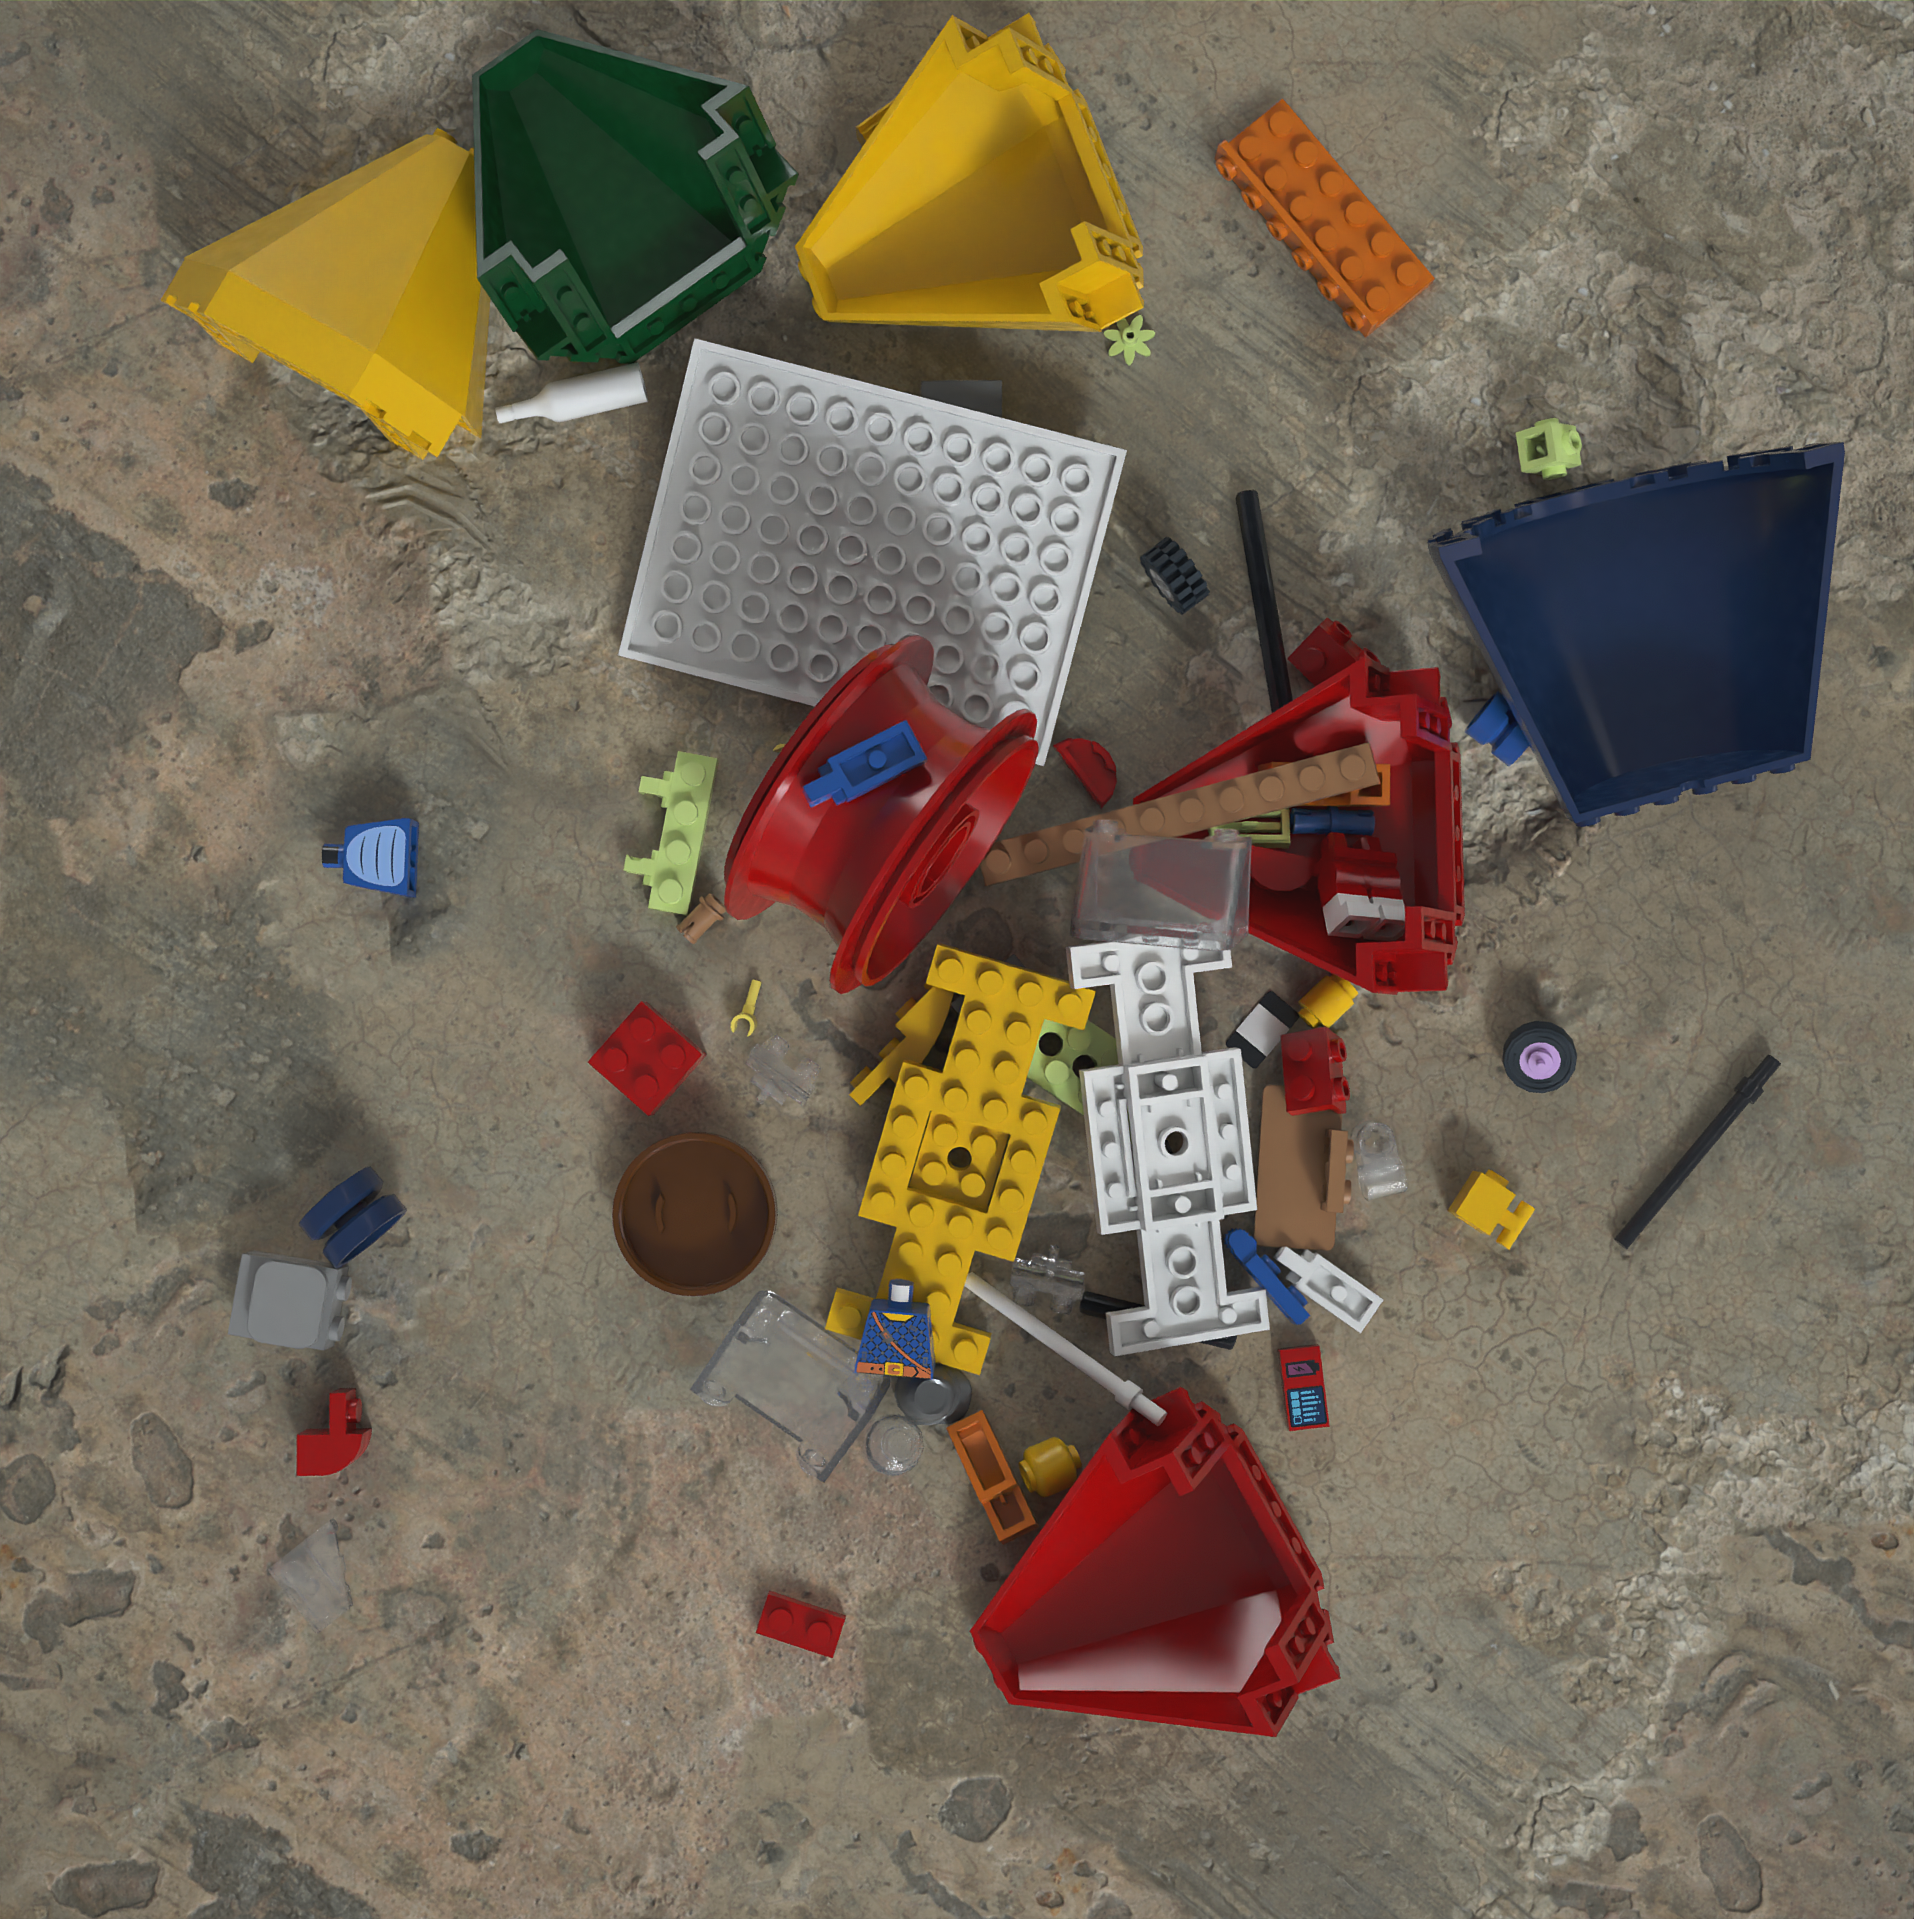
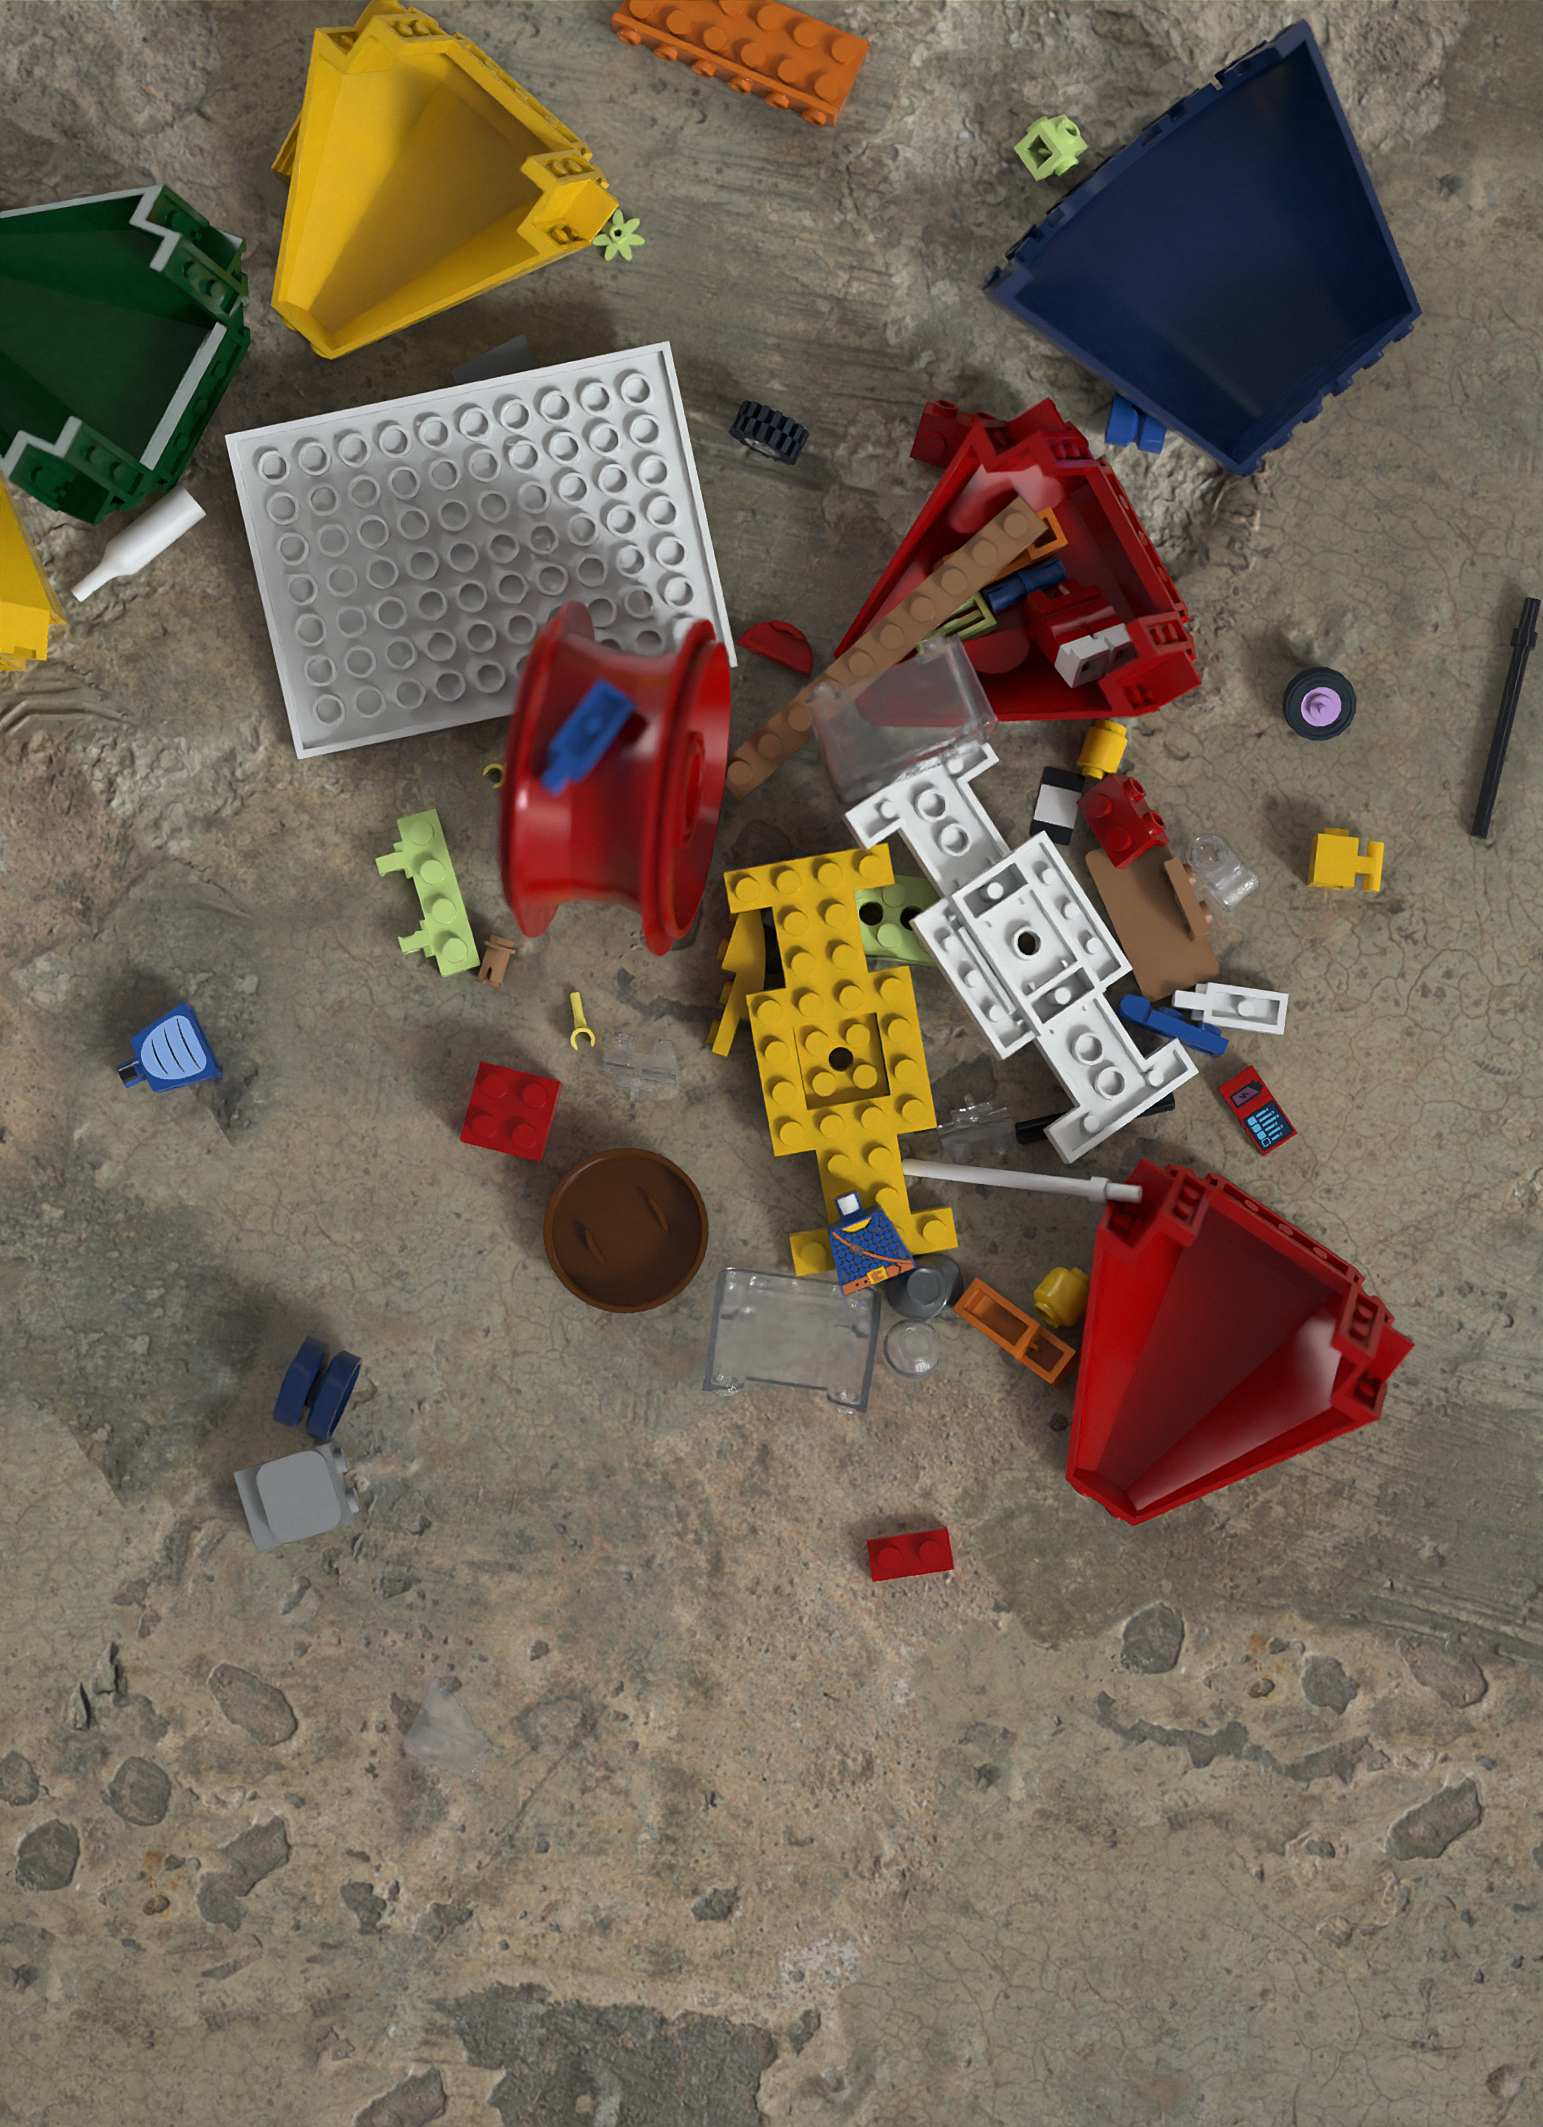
camera: 25 degrees left, 0 degrees up
(334, 1448) = (409, 1607): red brick -> none
(1264, 599) = (860, 412): black axle -> none

